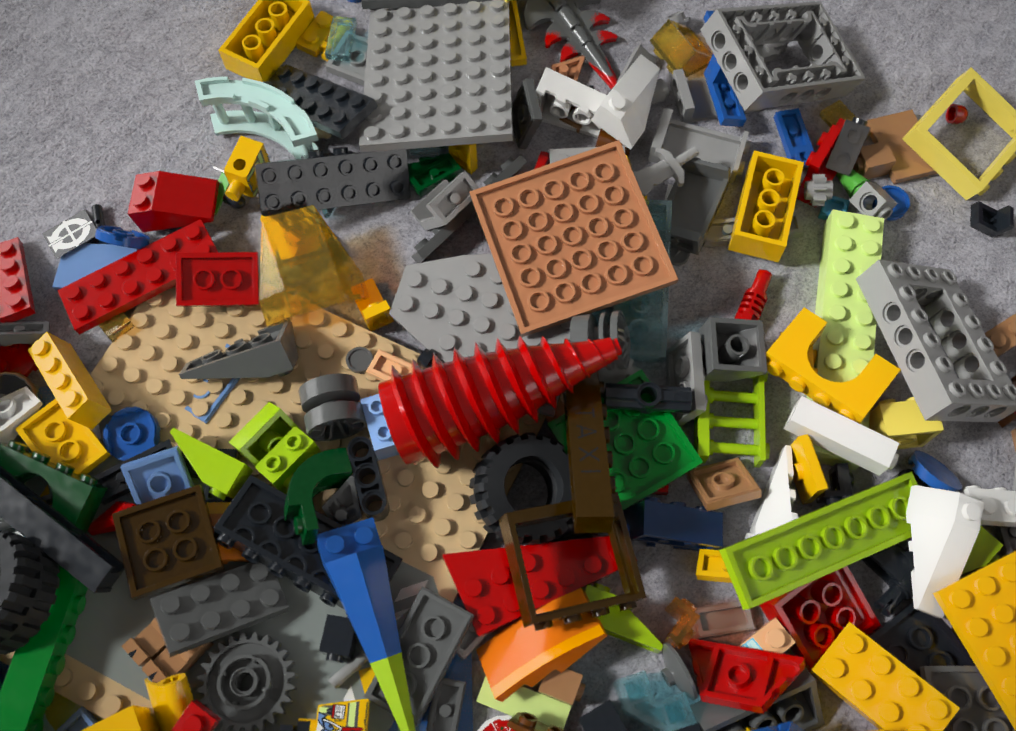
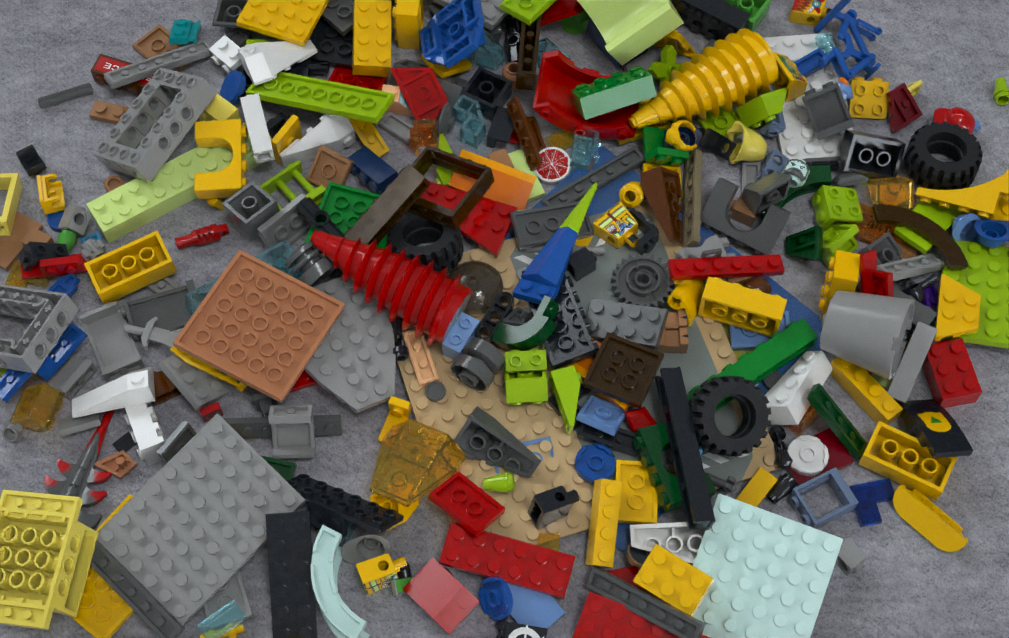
camera: 135 degrees left, 5 degrees down
(130, 345) = (551, 506): none -> black torso
(207, 329) = (501, 483): none -> lime cone
(434, 517) = (486, 287): none -> clear smoke dish
(930, 206) = (50, 194): none -> yellow hinge

